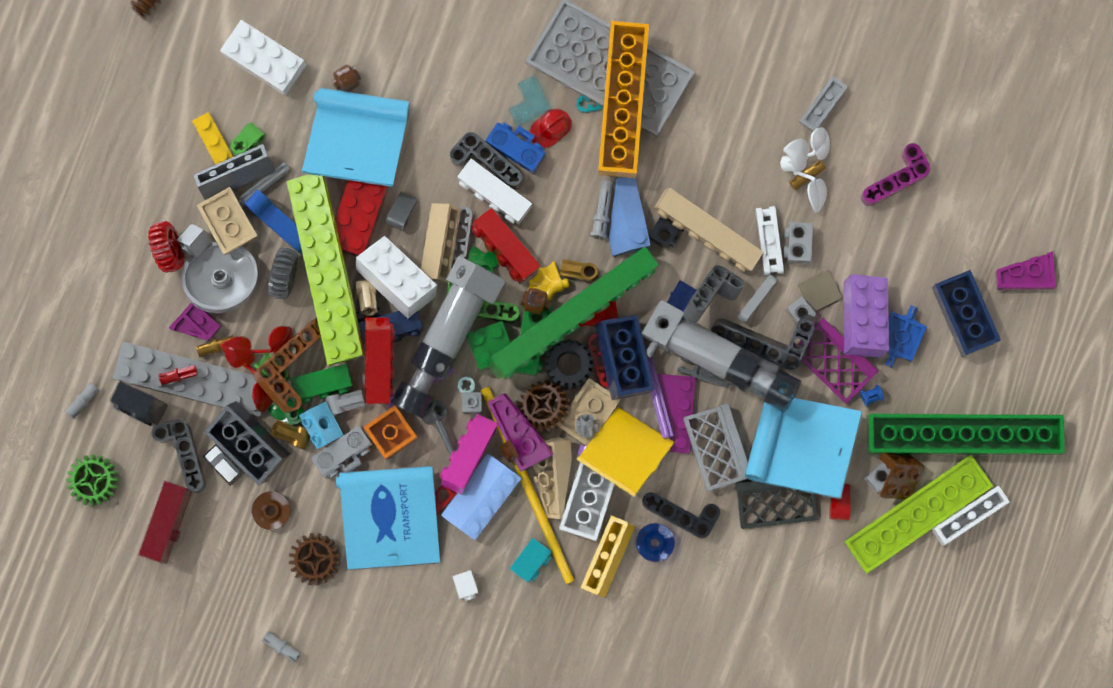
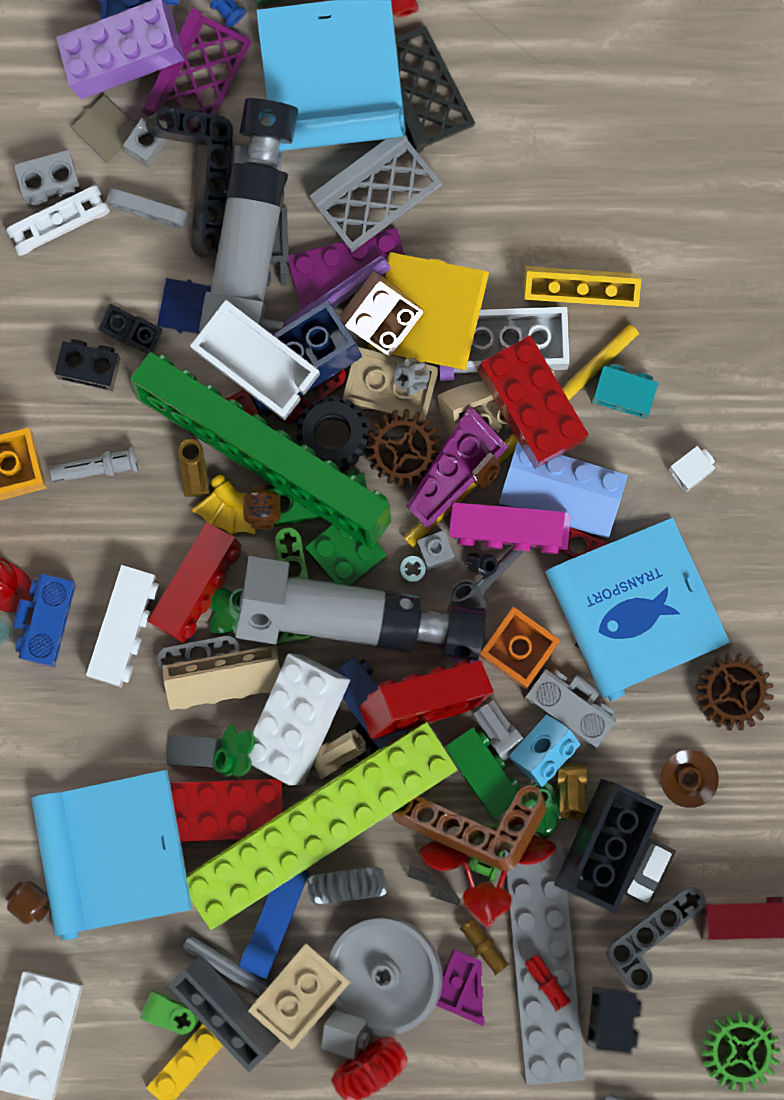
camera: 115 degrees left, 0 degrees up
(259, 331) = (440, 891): none -> clear smoke slope
(391, 234) = (235, 751): none -> green plate
(451, 429) = (483, 564): none -> black pin
(489, 163) = (83, 650): dark grey beam -> none
(540, 493) = (532, 402): none -> red brick
(627, 326) = (255, 359): none -> white piece
(628, 225) = (99, 424): medium blue wedge -> none
(634, 421) = (381, 314): none -> slope
(665, 540) = (539, 217): clear blue dish -> none
(678, 511) = (485, 214): black beam -> none
(683, 262) = (129, 329): none -> black slope
(708, 229) = (74, 304): tan brick -> none
(717, 281) = (145, 269): dark grey beam -> none

